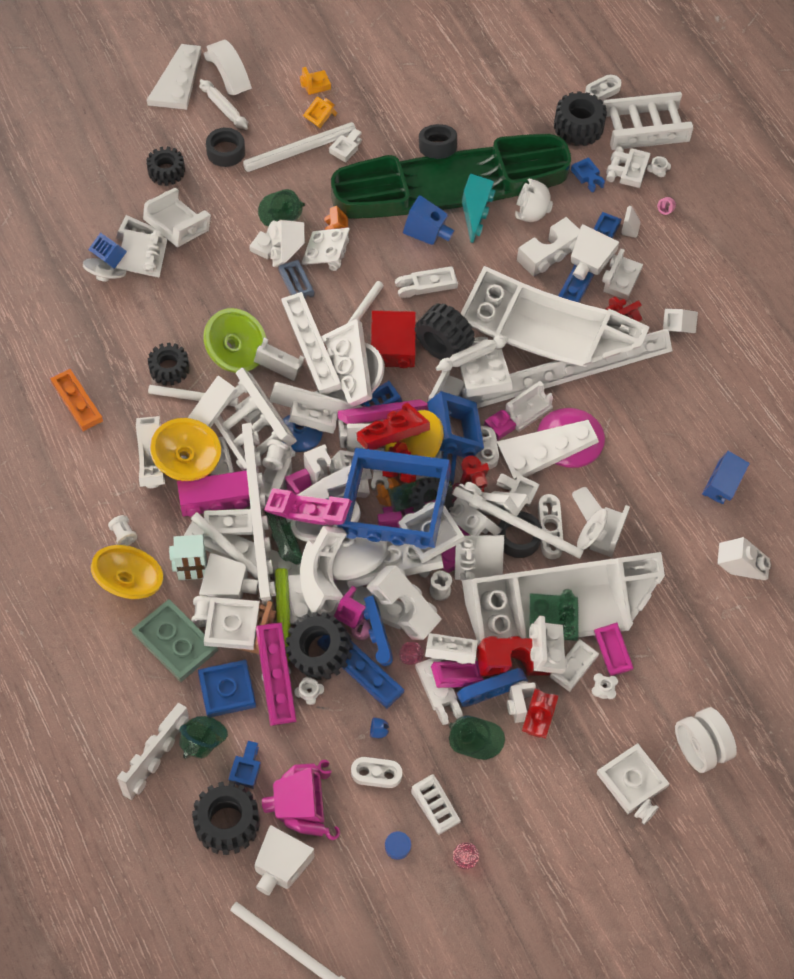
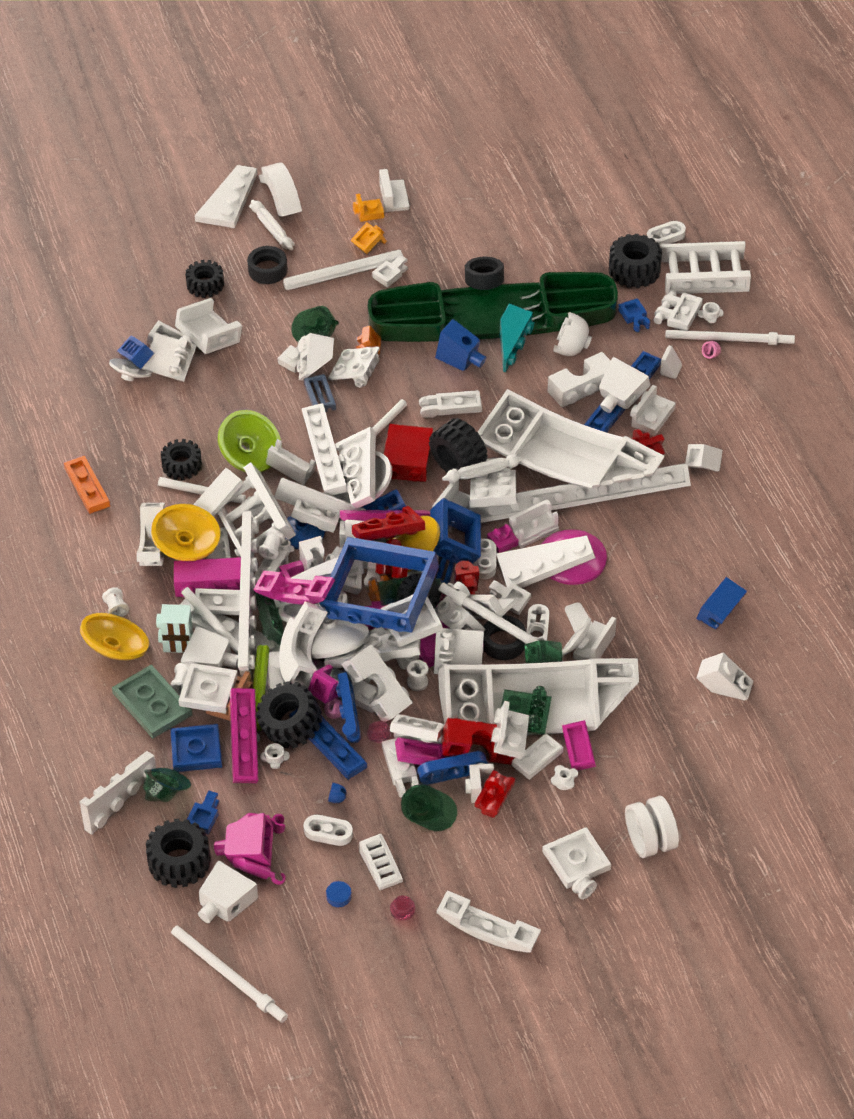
camera: 10 degrees right, 10 degrees down
(336, 63) = (393, 193): none -> white panel
(557, 868) = (486, 926): none -> white slope
(564, 553) = (543, 652): none -> clear green panel
(720, 189) = (771, 338): none -> white bar

